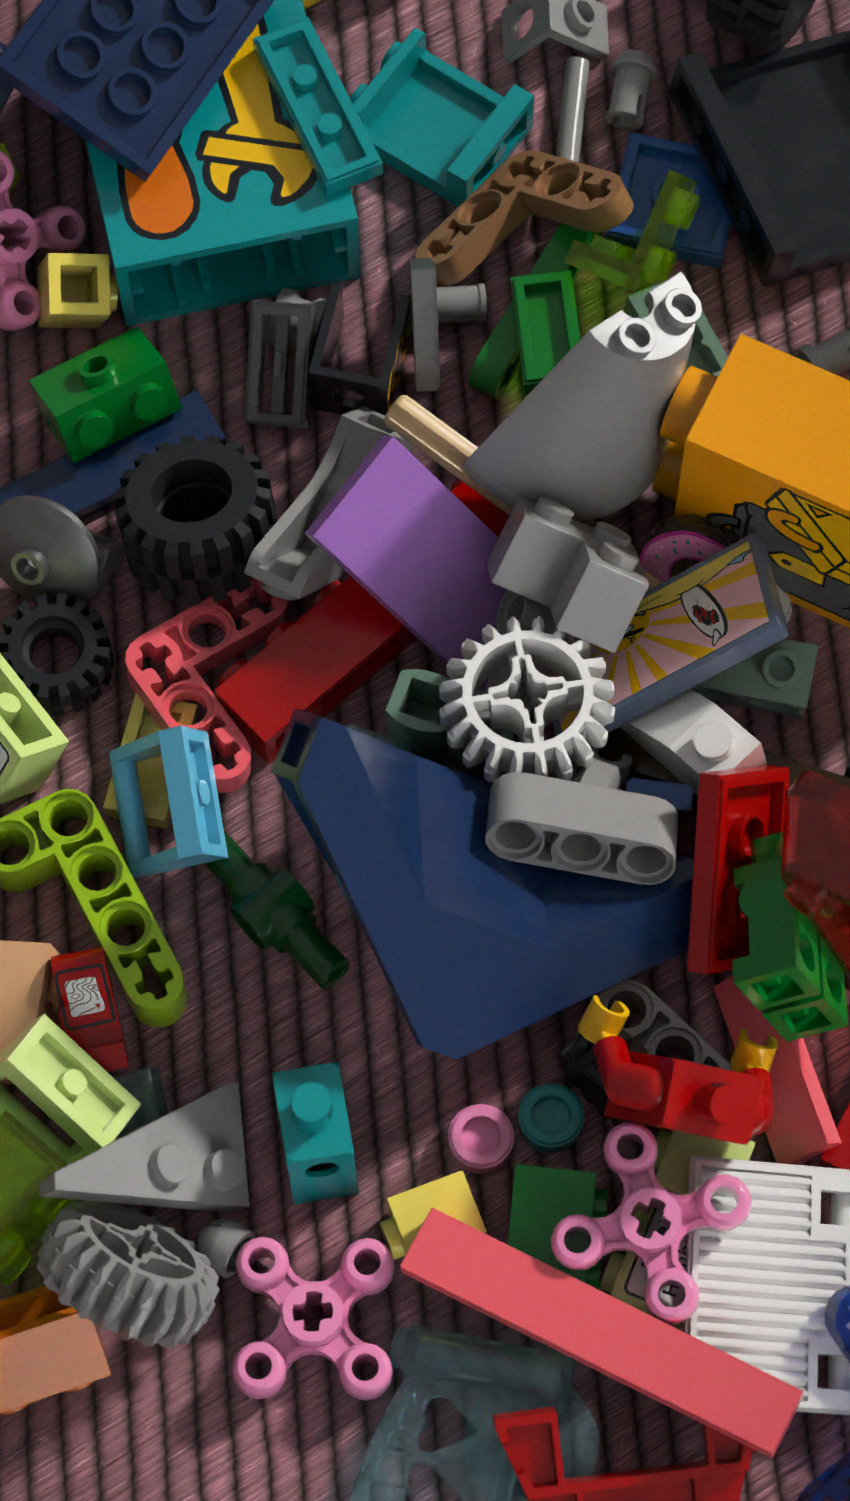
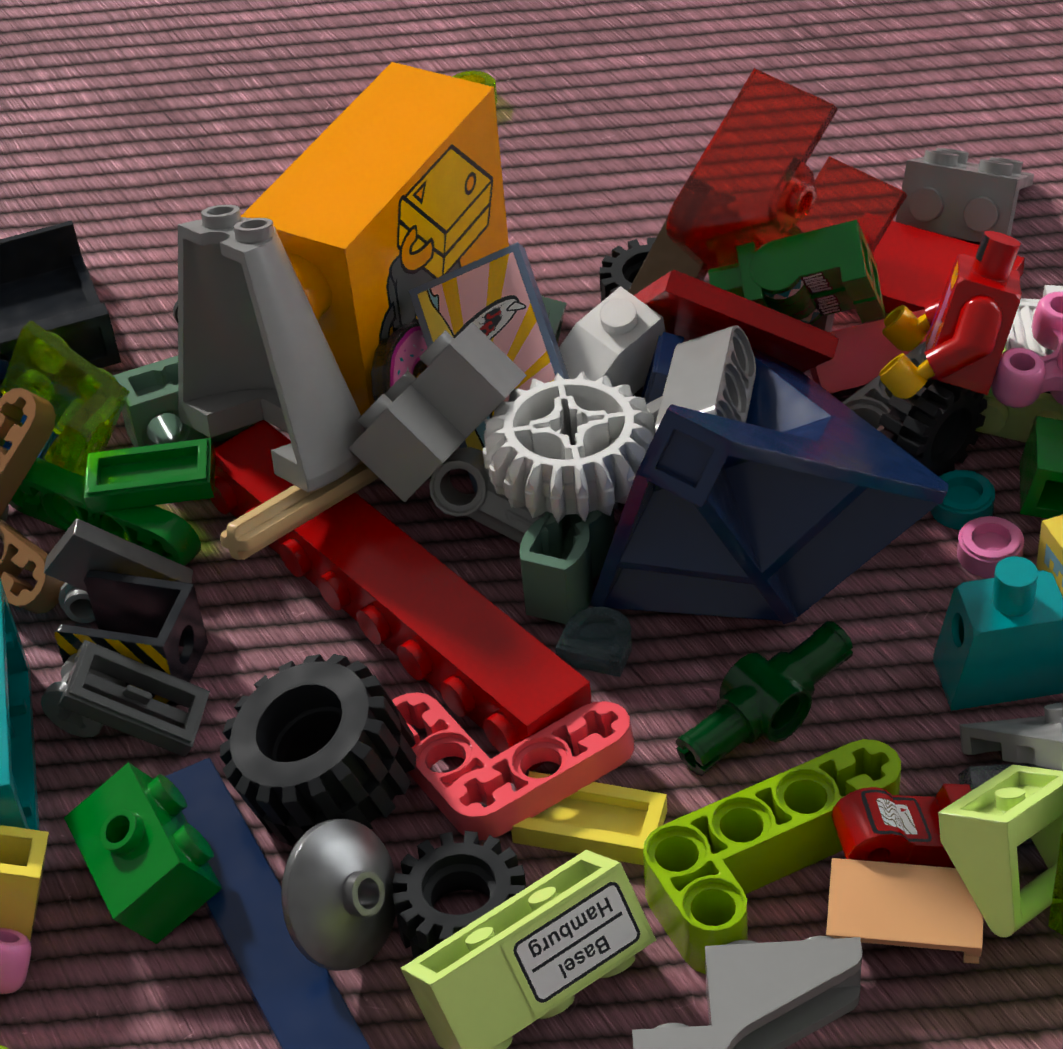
camera: 85 degrees left, 25 degrees down
(190, 795) = (650, 727): medium azure tile -> none
(286, 557) = (273, 623): light grey arch -> none
(413, 549) = (399, 539): medium lavender tile -> none

